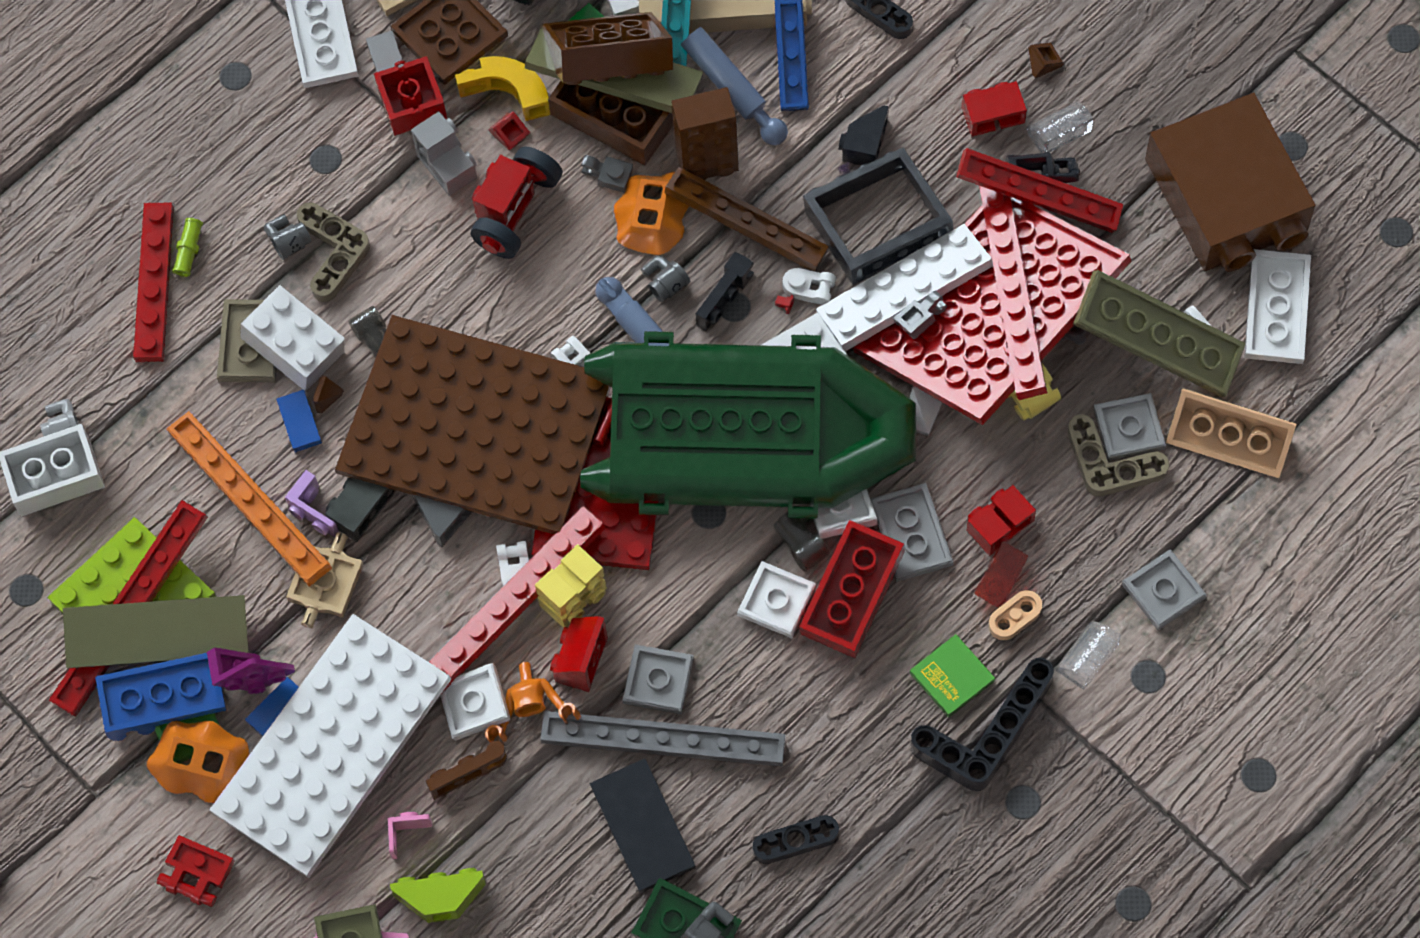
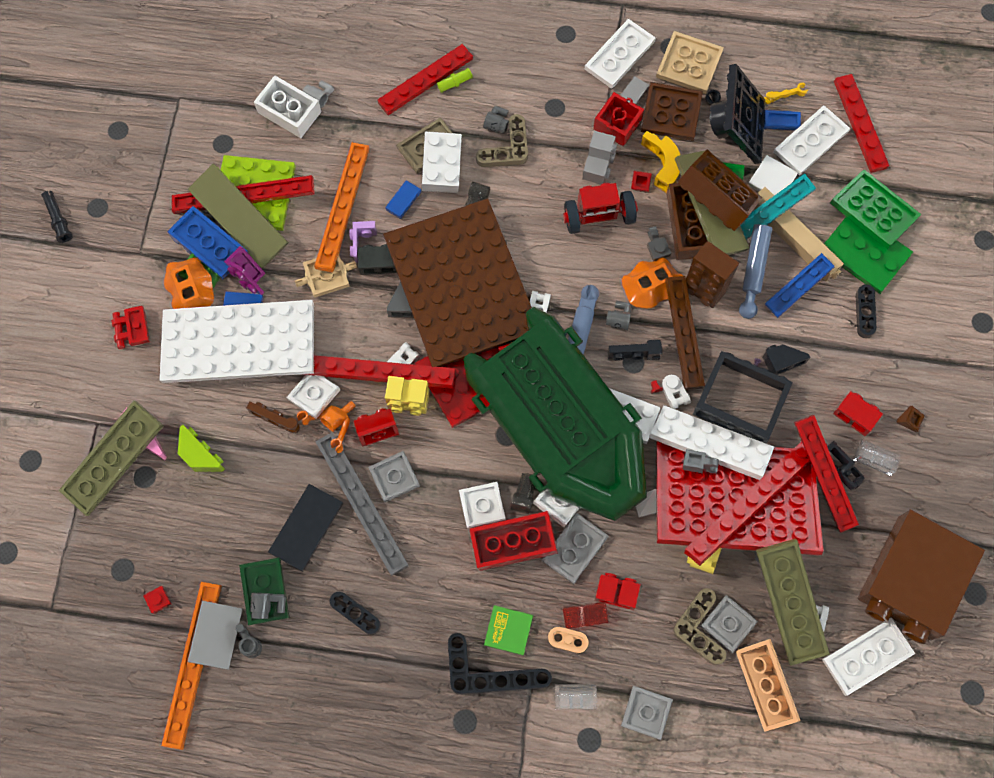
camera: 50 degrees right, 5 degrees up
(326, 394) = (425, 201): reddish brown slope -> none
(407, 820) = (217, 404): bright pink bracket -> none

